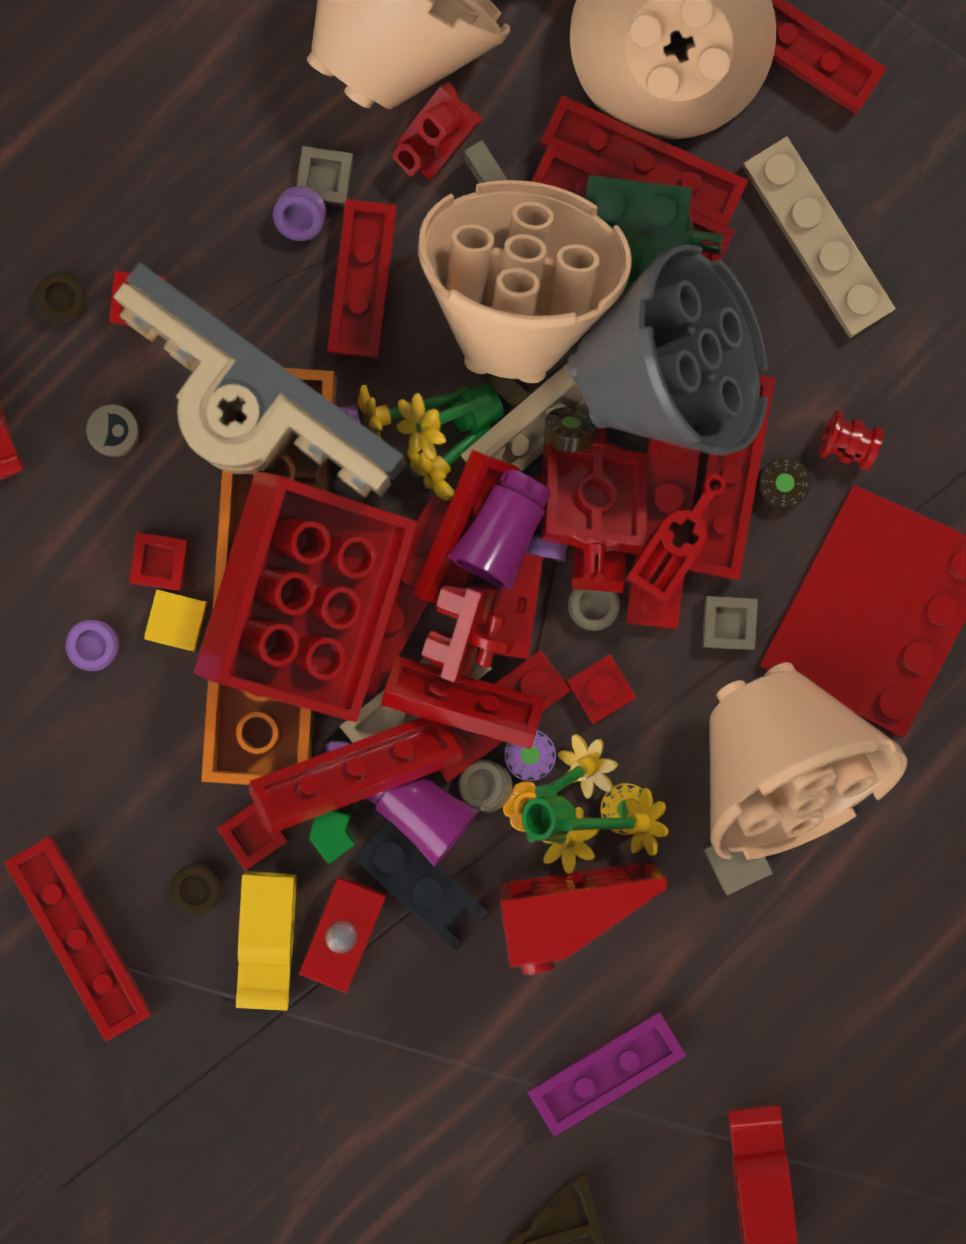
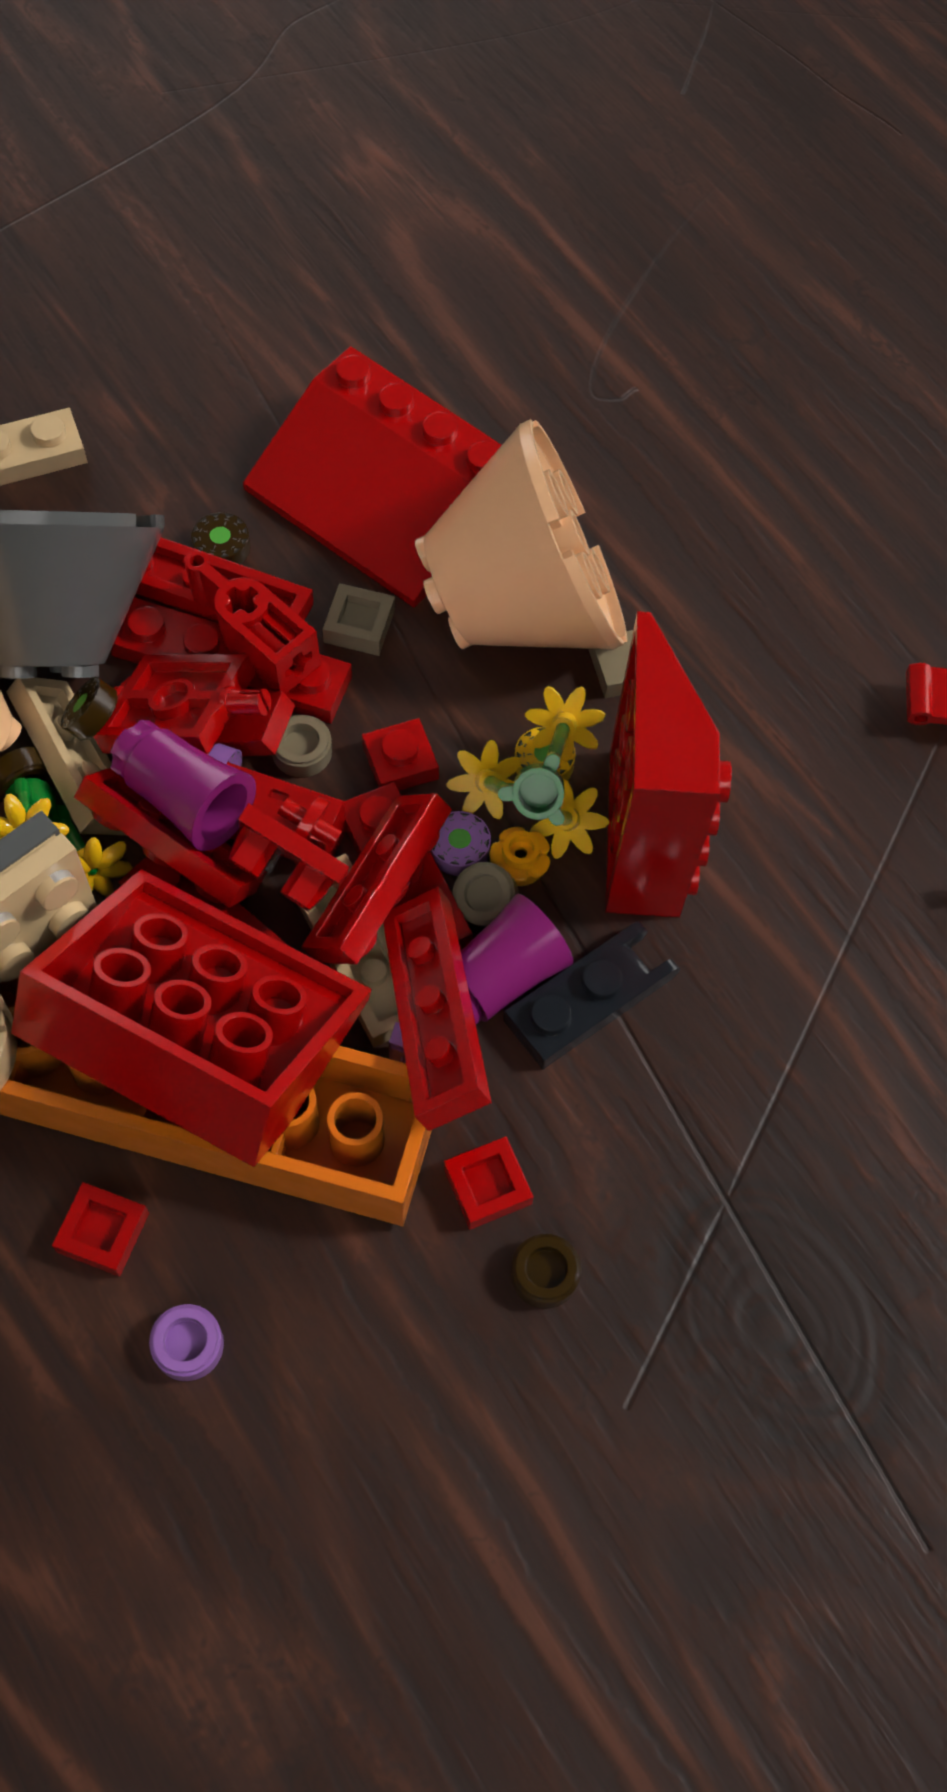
camera: 80 degrees left, 25 degrees down
(78, 938) = (582, 1442): red plate -> none
(175, 620) = (184, 1222): yellow tile -> none
(266, 940) = (628, 1187): yellow piece -> none
(332, 835) = (512, 1070): green piece -> none
(342, 933) = (636, 1091): red piece -> none
(606, 1073) = (851, 834): magenta plate -> none
(850, 441) = (194, 468): red bush -> none

